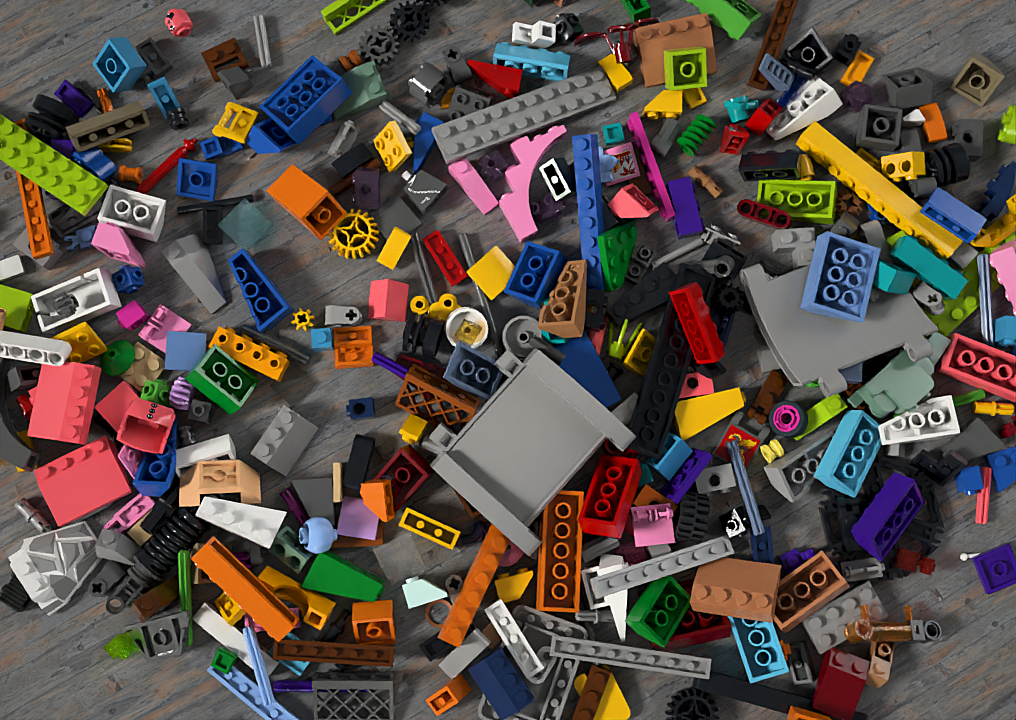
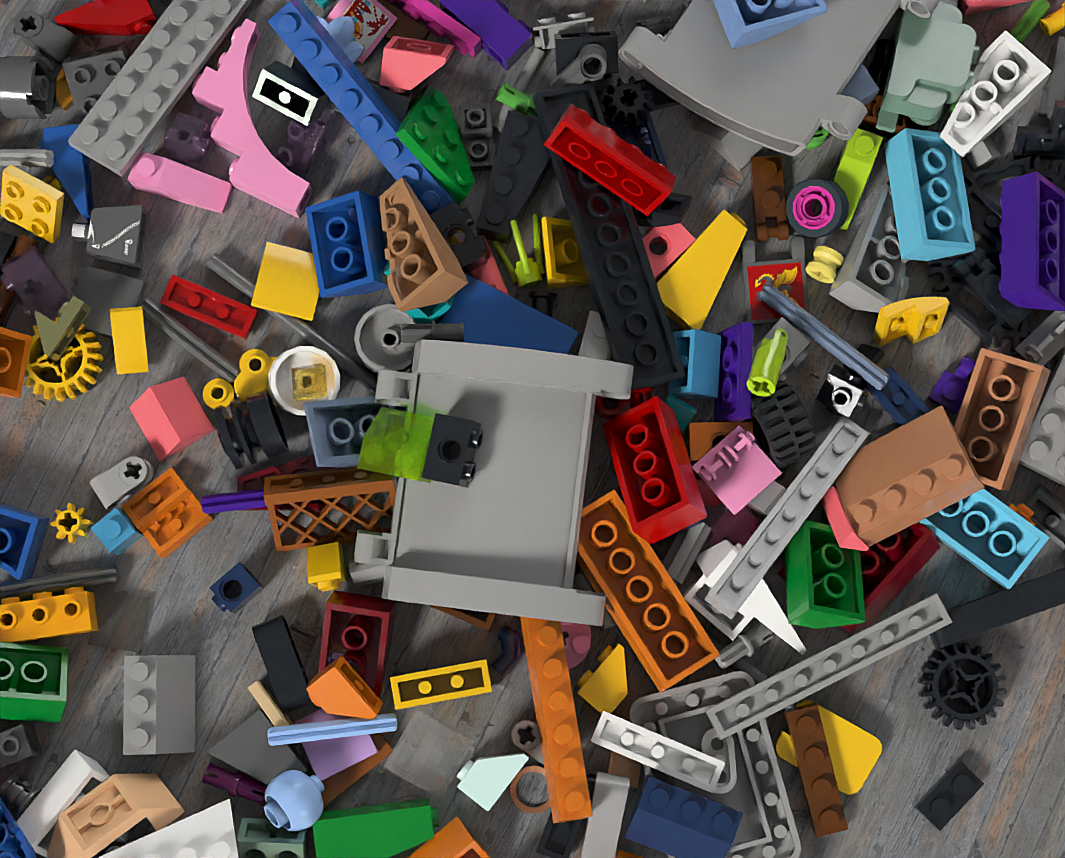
camera: 30 degrees left, 0 degrees up
(360, 222) = (58, 335): none -> olive slope
(360, 512) = (331, 729): none -> light blue axle
(492, 395) = (397, 444): none -> clear neon green slope
(503, 418) = (444, 433): none -> black brick
(672, 258) = (516, 100): none -> bright green axle
(686, 588) = (840, 523): none -> coral slope
(705, 482) = (768, 364): none -> lime piece
(798, 510) = (911, 317): none -> yellow slope

